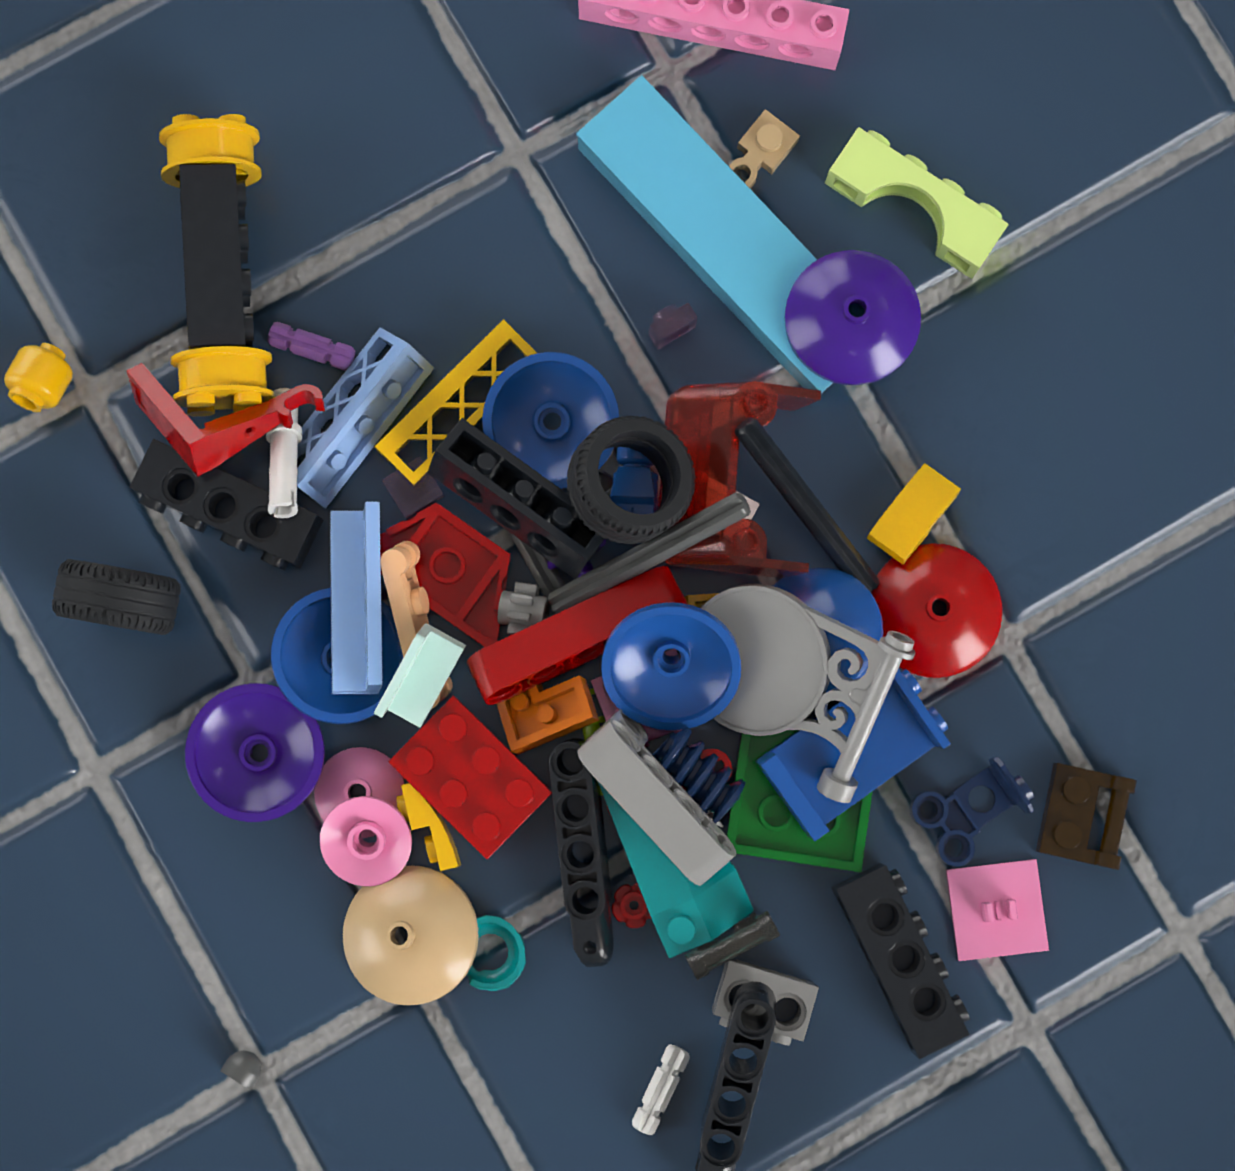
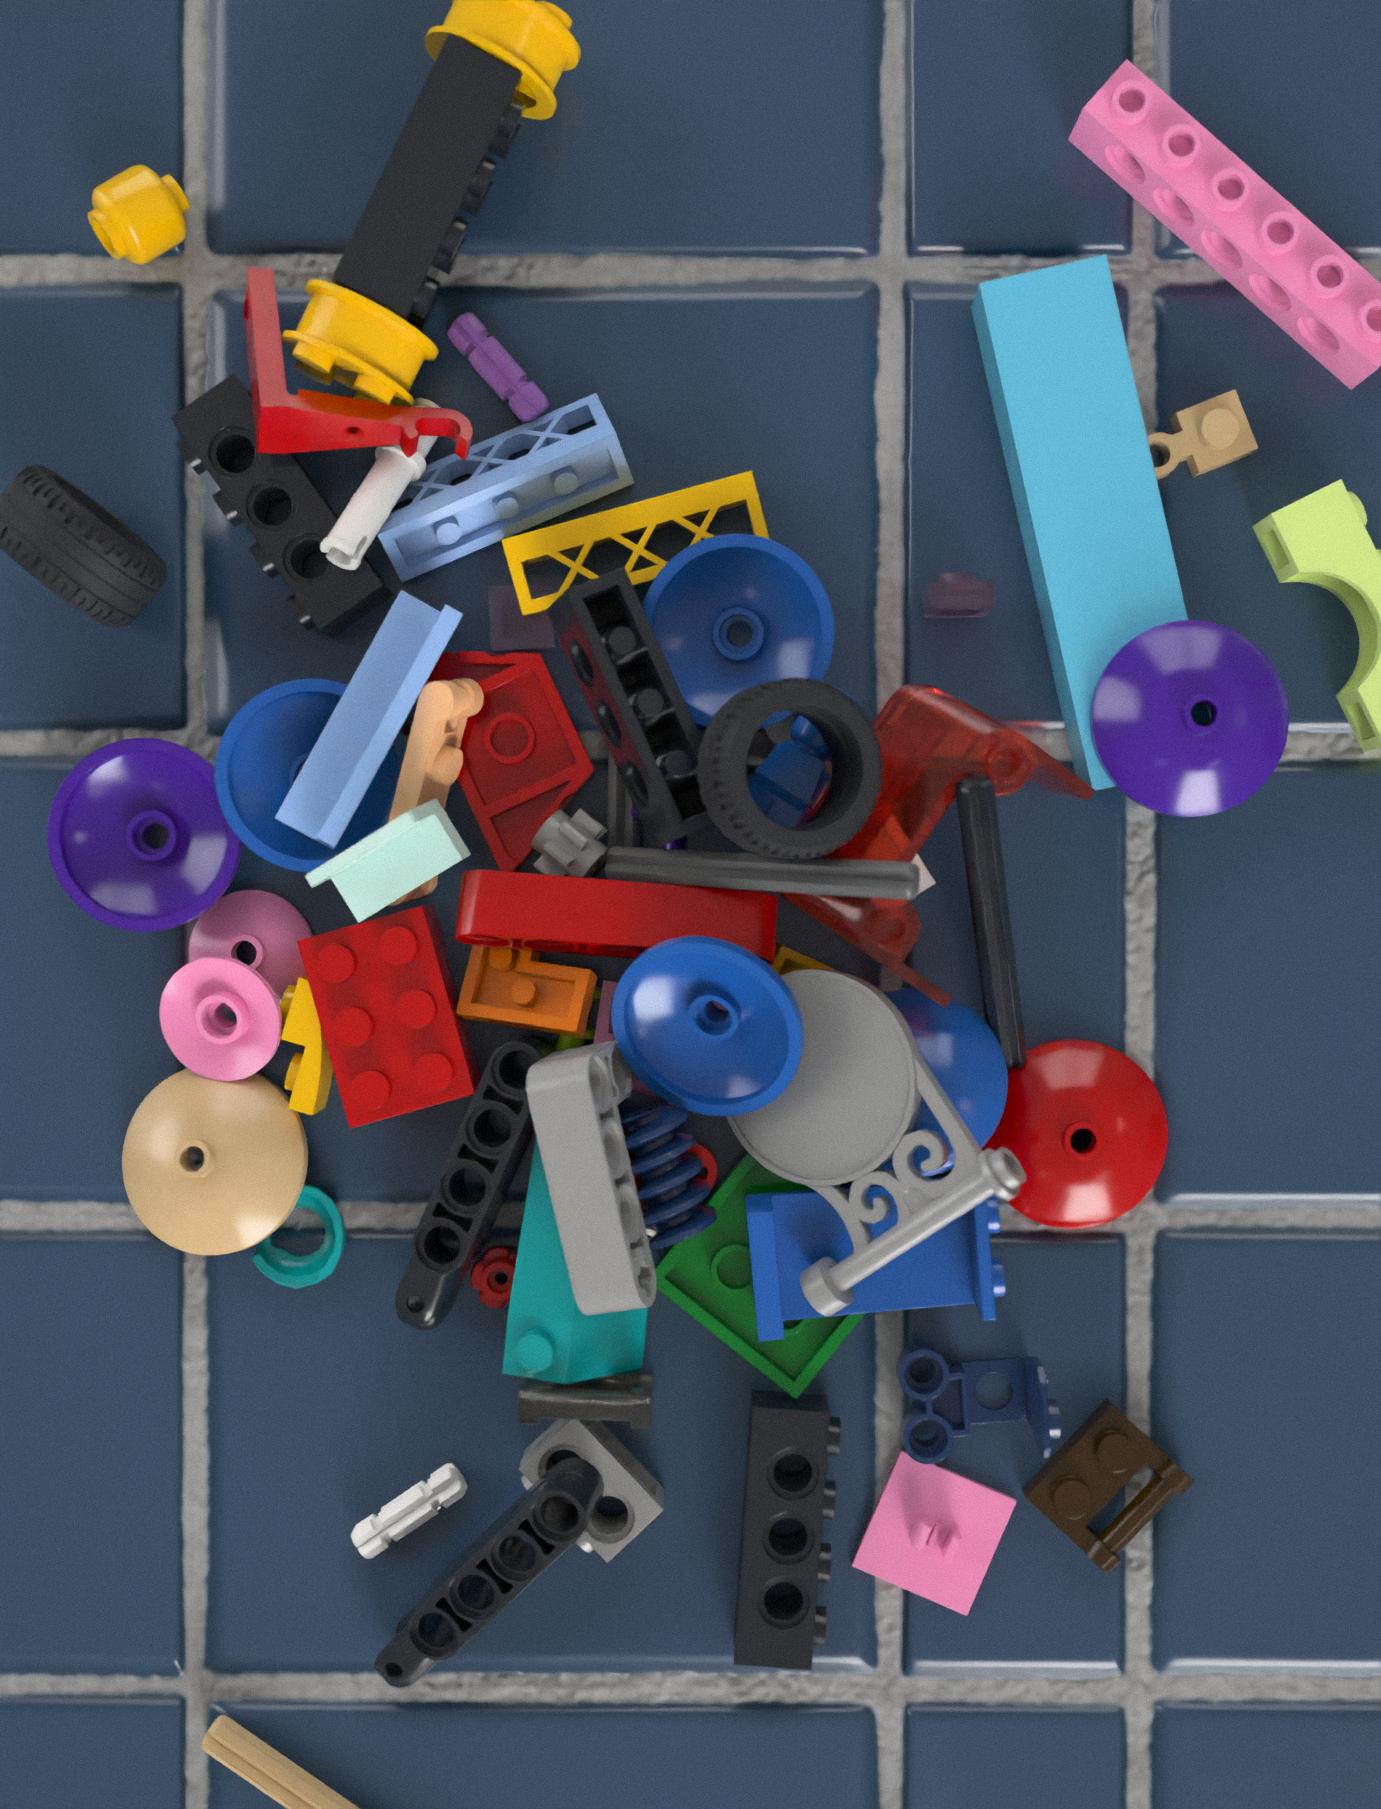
camera: 35 degrees right, 5 degrees up
(913, 513) = (1118, 1003): yellow slope -> none

